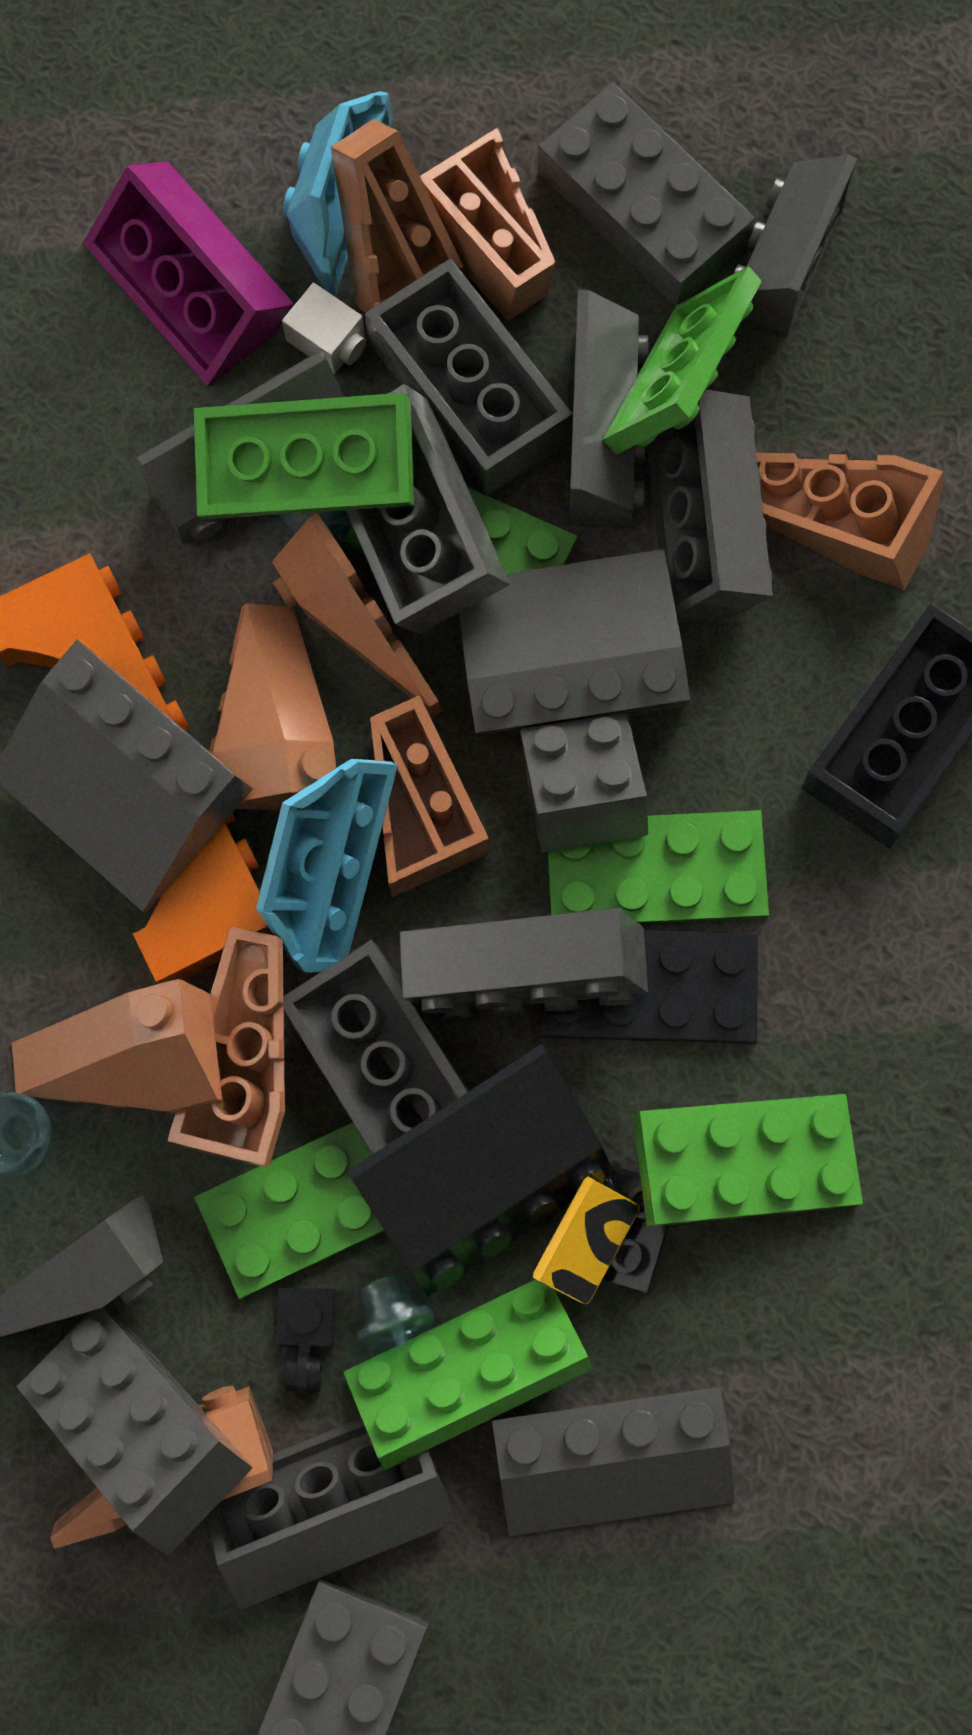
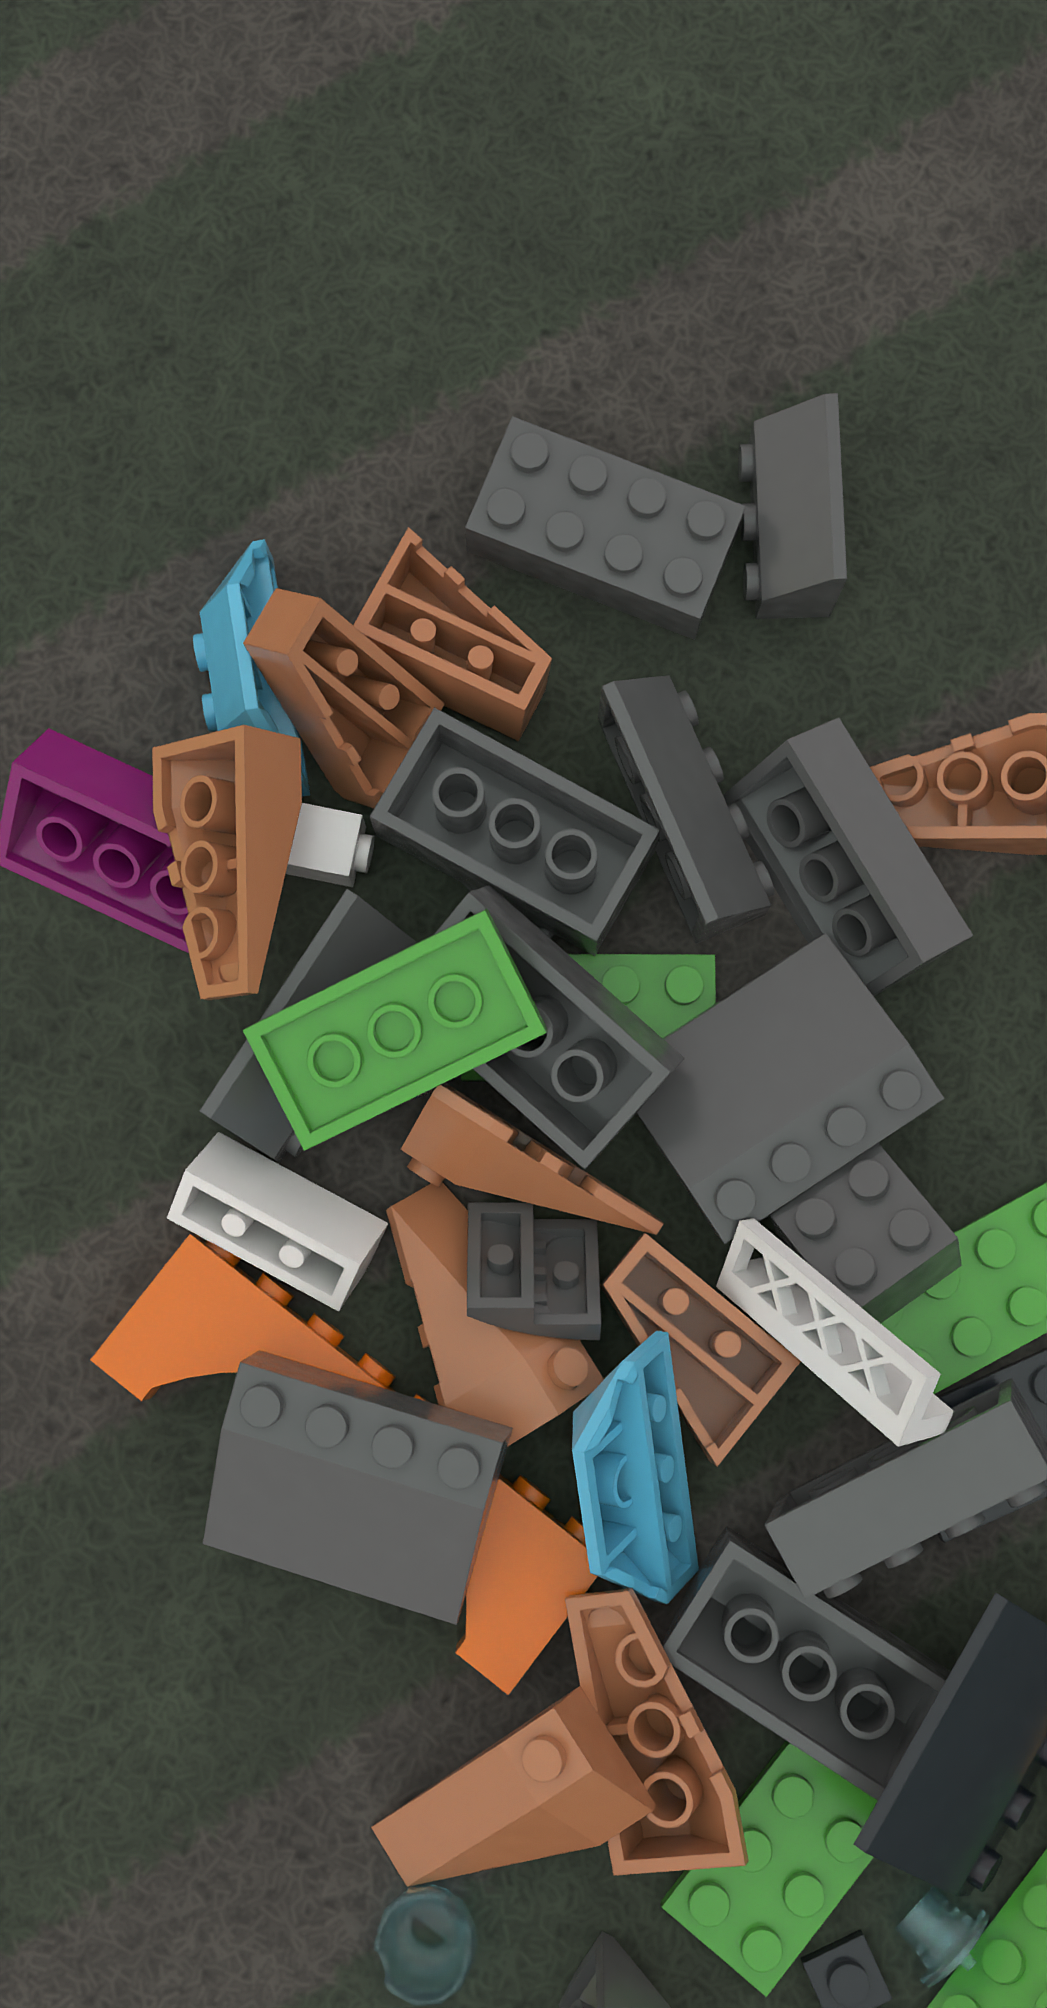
camera: 30 degrees left, 5 degrees up
(158, 575) = (277, 1220): none -> white brick
(262, 264) = (231, 829): none -> nougat wedge
(324, 693) = (533, 1272): none -> dark grey slope
(516, 818) = (833, 1336): none -> white fence
(683, 362) = (753, 714): bright green plate -> none

